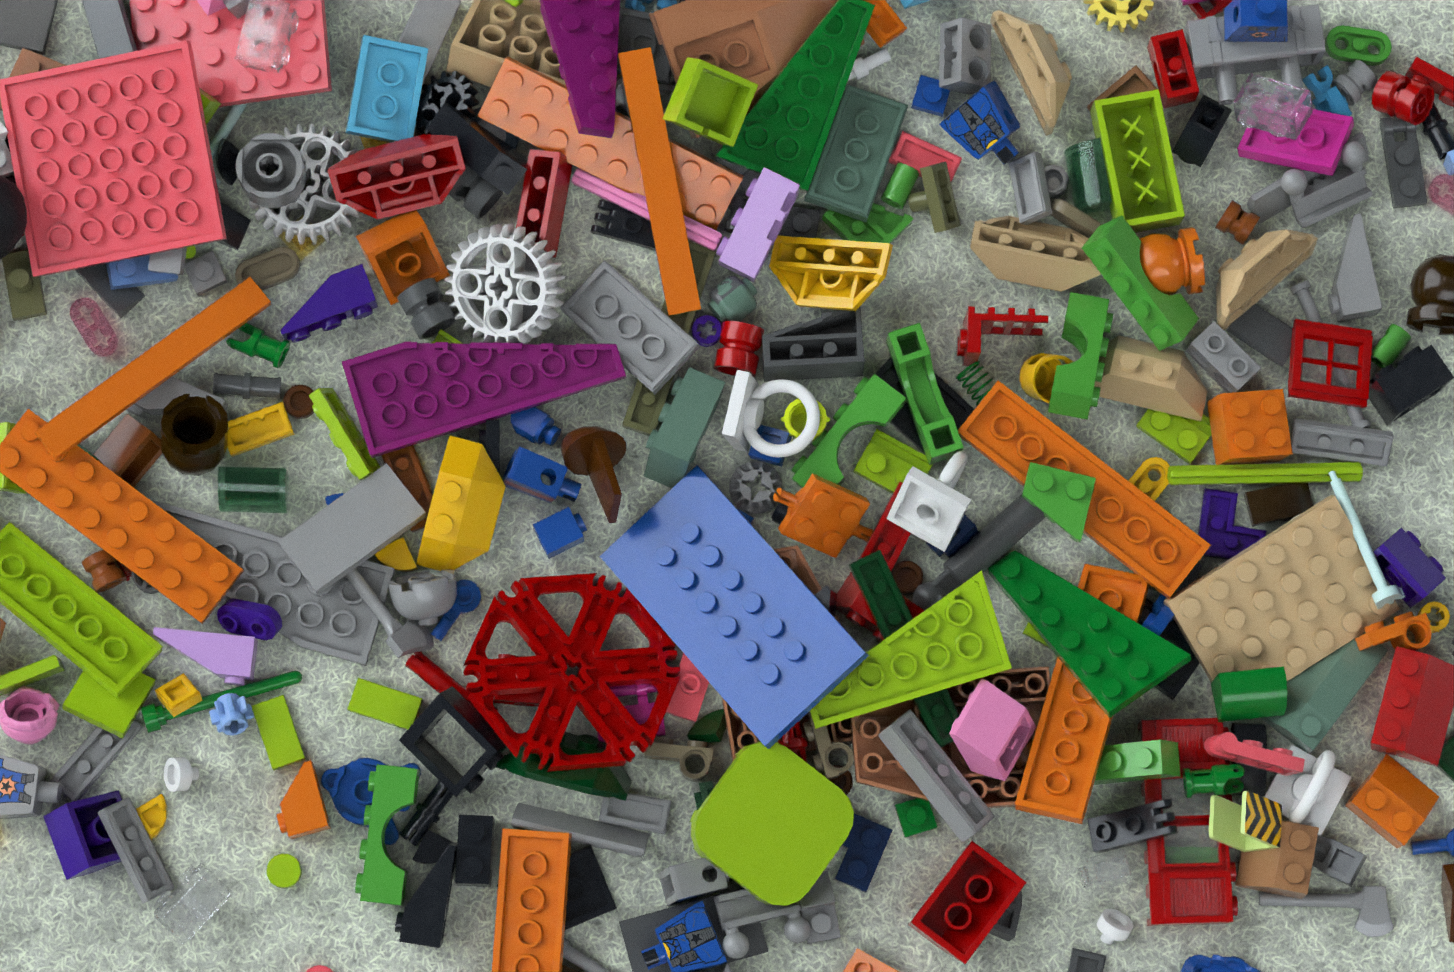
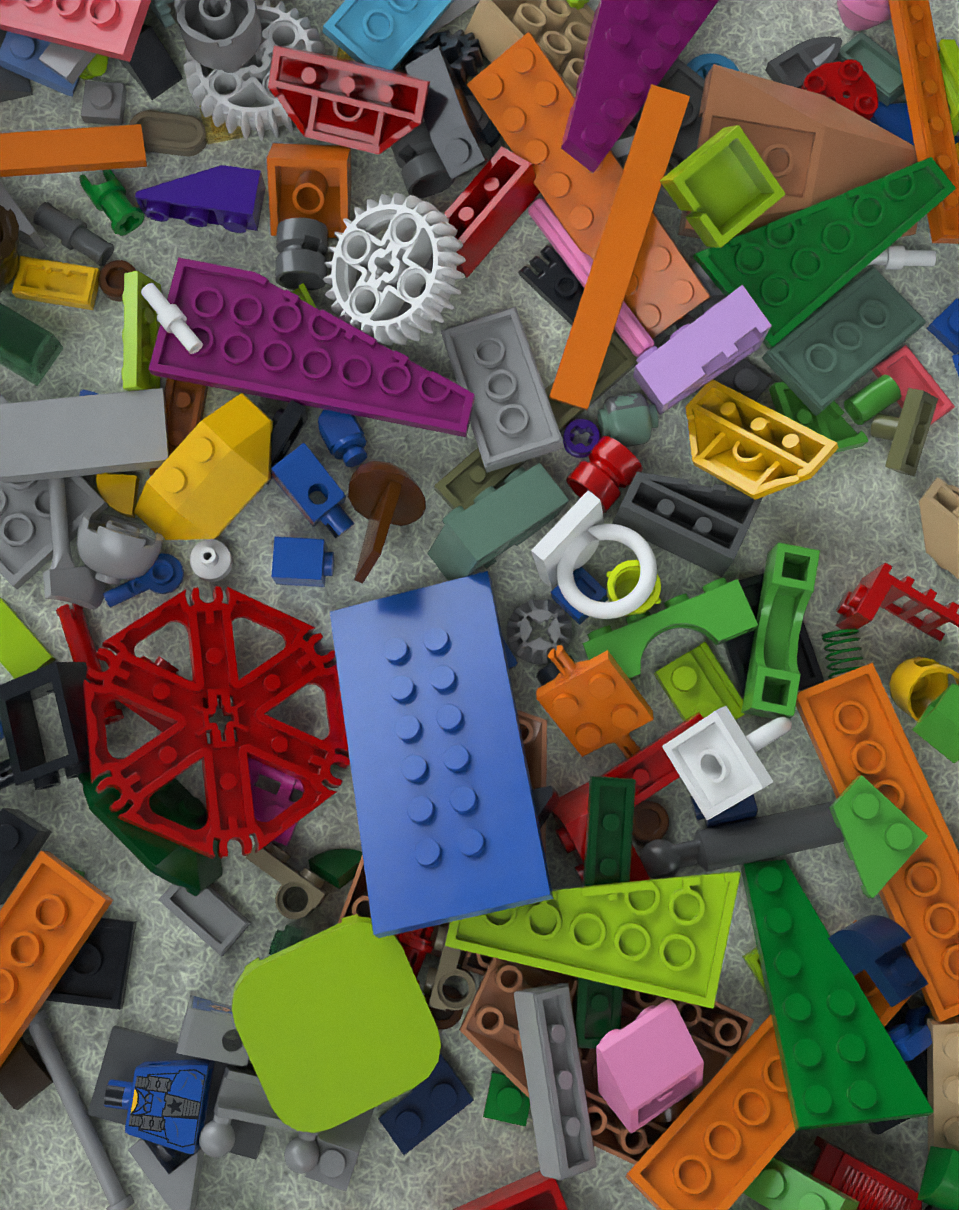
camera: 30 degrees right, 0 degrees up
(367, 409) = (171, 318): none -> white bar
(494, 575) = (217, 566): none -> white tile
(583, 830) = (131, 898): light grey slope -> none
(689, 692) = (334, 816): coral plate -> none
(1104, 573) = (876, 947): none -> dark blue brick

